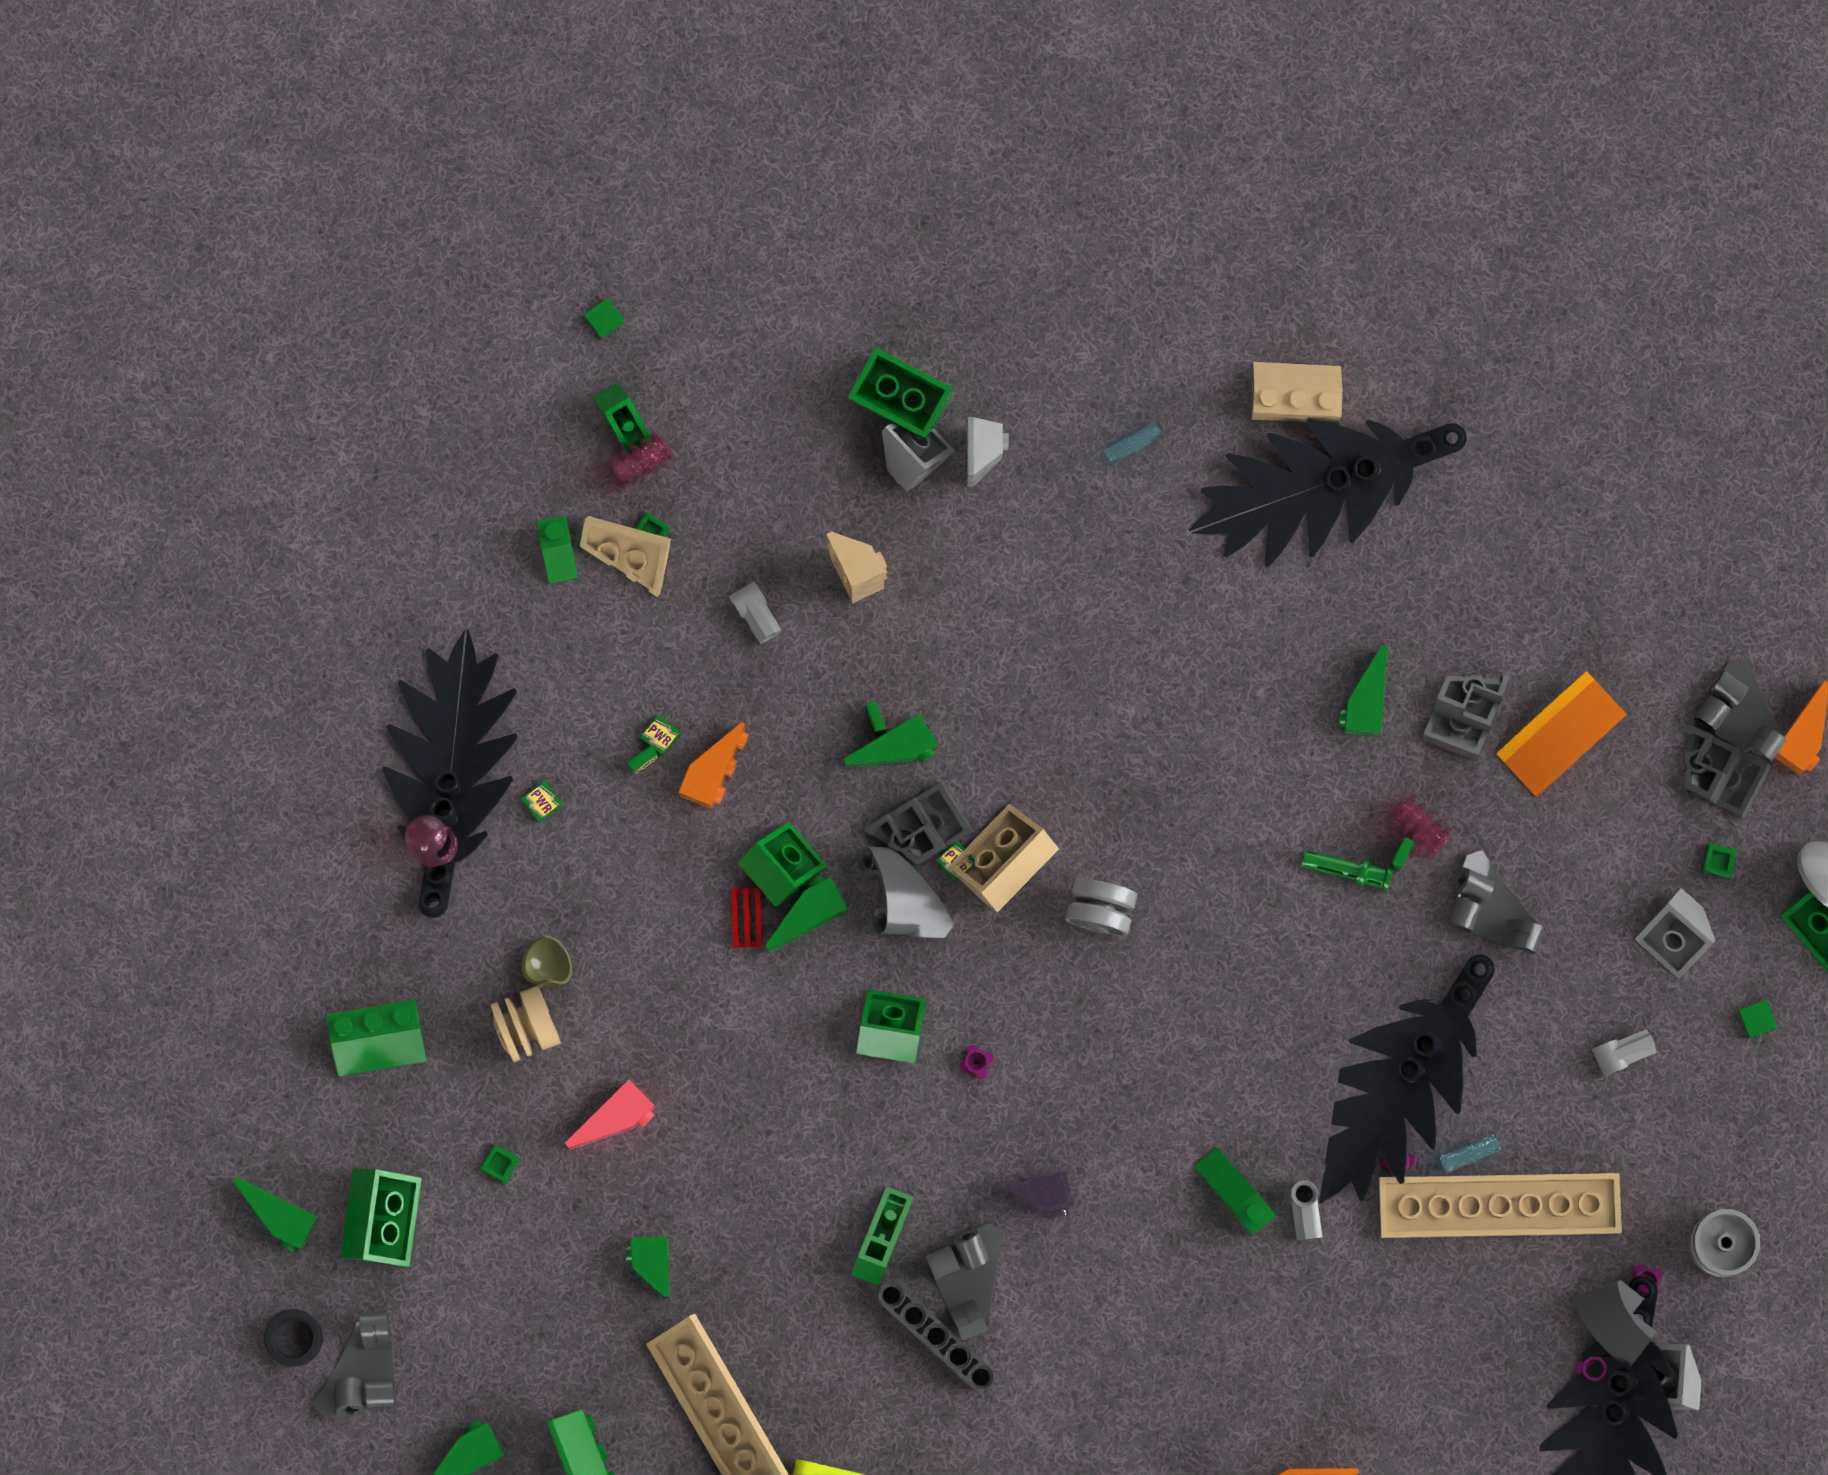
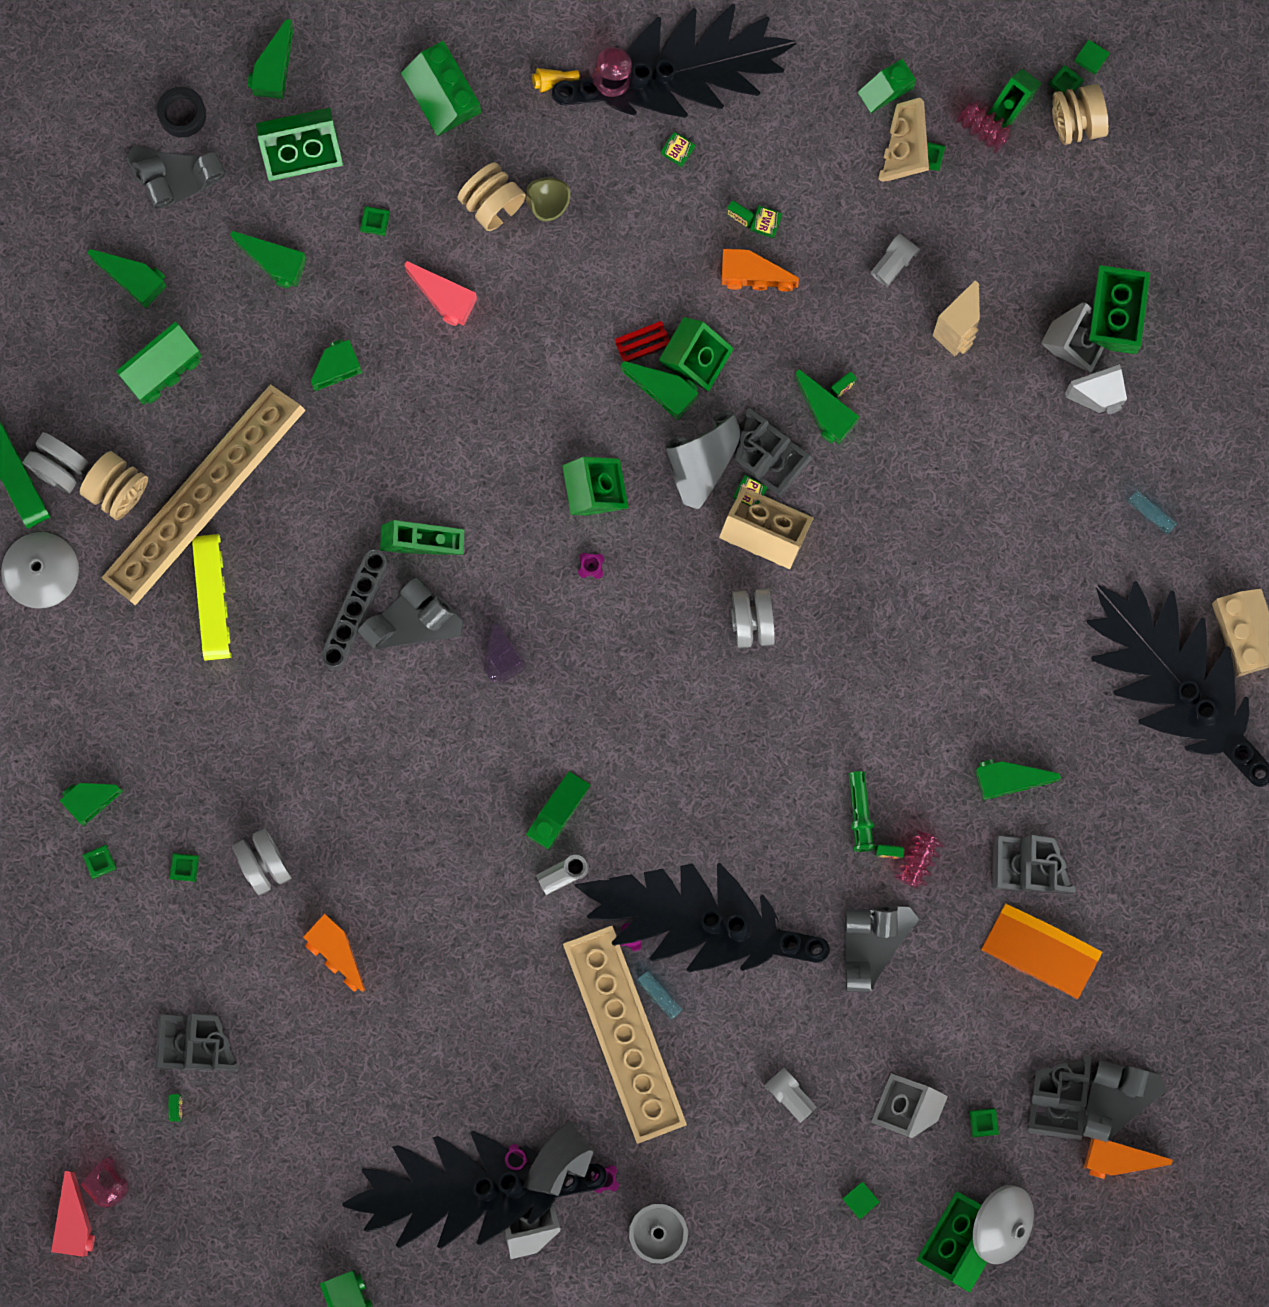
camera: 75 degrees right, 0 degrees up
(409, 916) = (546, 78): none -> yellow cone
(508, 1289) = (277, 261): none -> green slope
(622, 356) = (1065, 80): none -> green tile
(669, 354) = (1075, 114): none -> tan wheel

